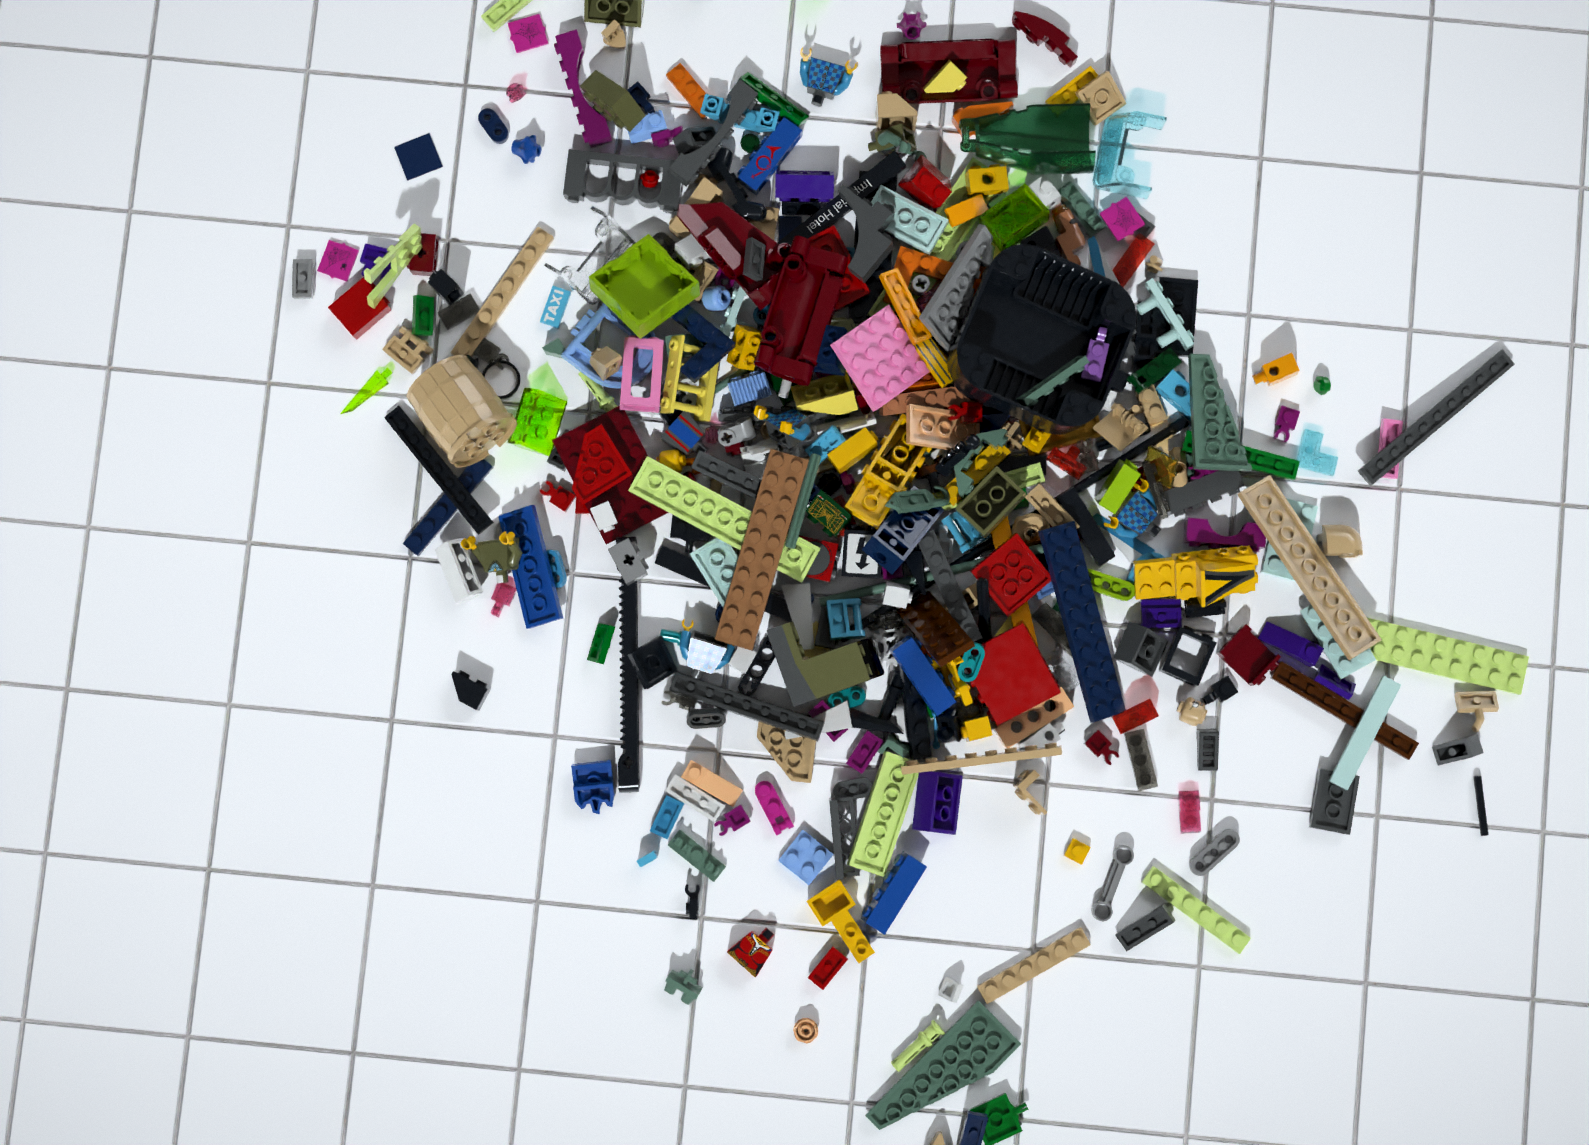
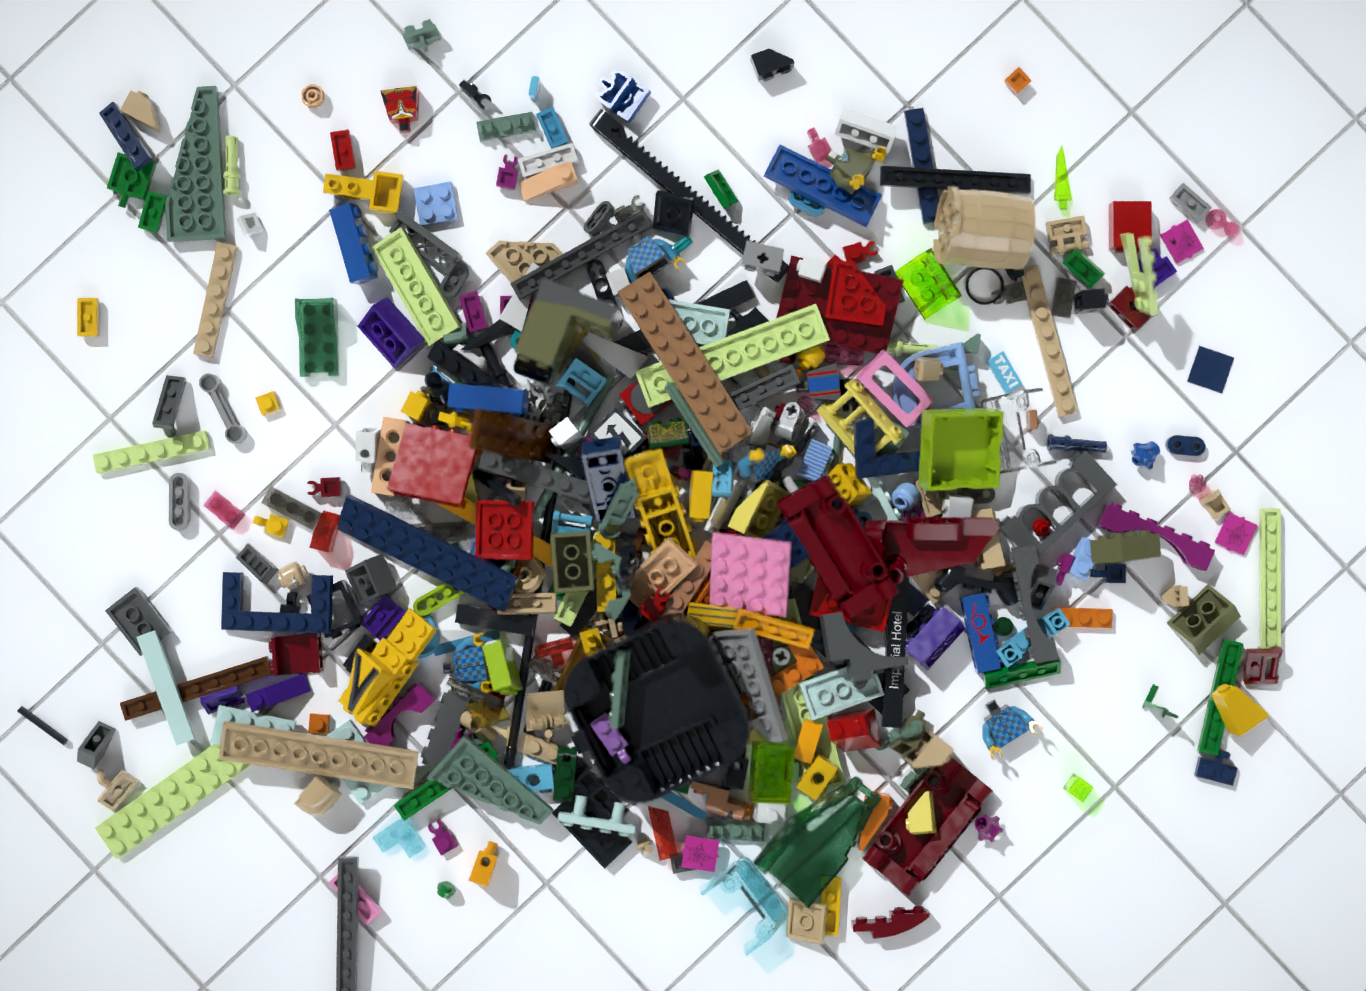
camera: 125 degrees right, 5 degrees up
(297, 231) = (1230, 228): none -> clear pink plate
(319, 489) = (1017, 80): none -> orange plate
(519, 67) = (1214, 504): none -> tan tile
(568, 213) = (1066, 444): none -> dark blue pin
(574, 254) = (1031, 419): none -> nougat tile
(649, 438) = (843, 355): none -> clear pink plate
(754, 259) = (908, 547): dark grey plate -> none
(772, 806) = (493, 211): dark pink plate -> none
(927, 110) = (914, 778): none -> sand green plate
(971, 661) = (463, 442): teal plate -> none
(990, 757) = (385, 394): tan plate -> none
(990, 857) = (317, 336): none -> clear green piece
(1009, 1076) = (152, 212): none -> green plate
(1026, 778) = (348, 406): tan bracket -> none
(1136, 1054) = (88, 317): none -> yellow plate
(1165, 762) = (274, 525): none -> yellow plate
(1263, 725) = (315, 622): none -> dark blue plate
(1285, 592) = (319, 723): none -> orange plate

